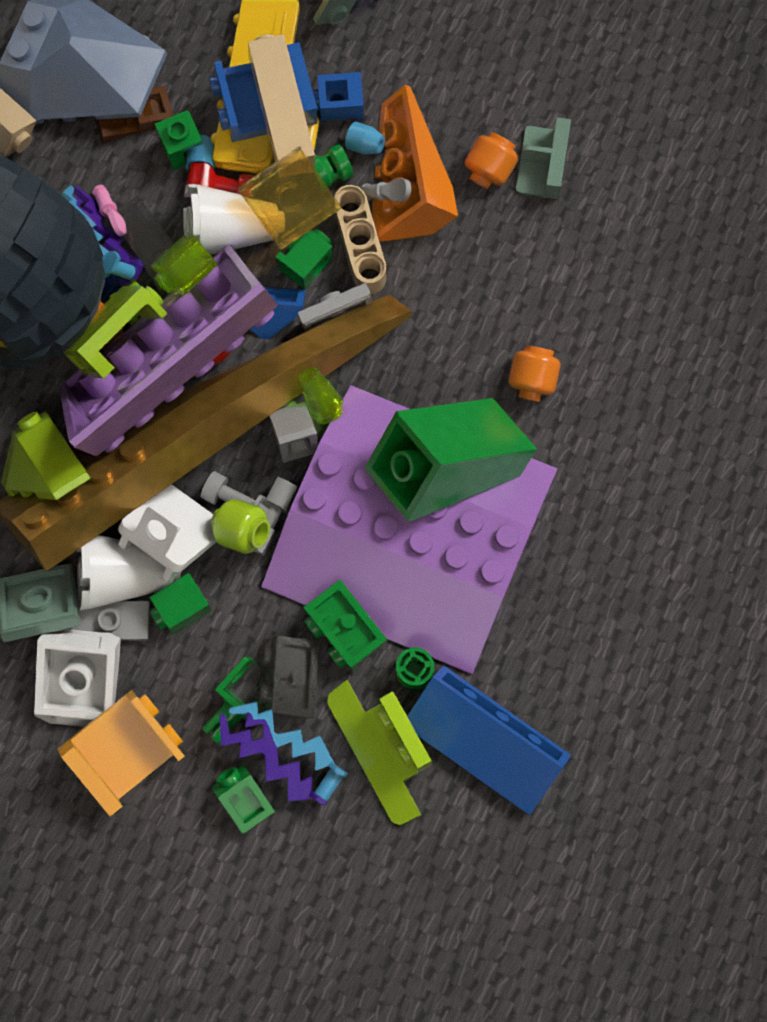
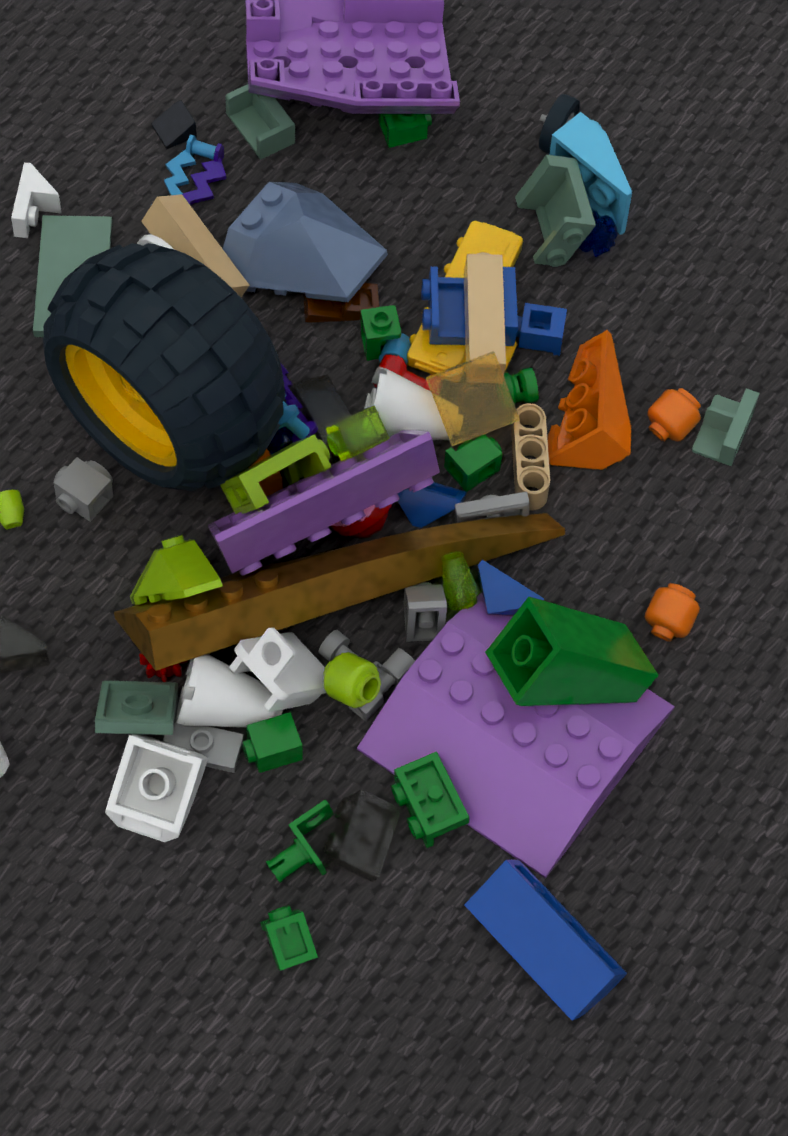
camera: 10 degrees right, 15 degrees down
(109, 209) = (297, 377): bright pink piece -> none
(120, 749) = (183, 861): light orange panel -> none
(296, 788) = (328, 889): piece -> none
(364, 139) = (556, 370): dark azure hose -> none
(369, 396) = (501, 592): none -> blue slope
(384, 747) = (442, 921): lime plate -> none
(396, 190) = (576, 417): light grey piece -> none
(416, 675) = (486, 863): green wheel -> none

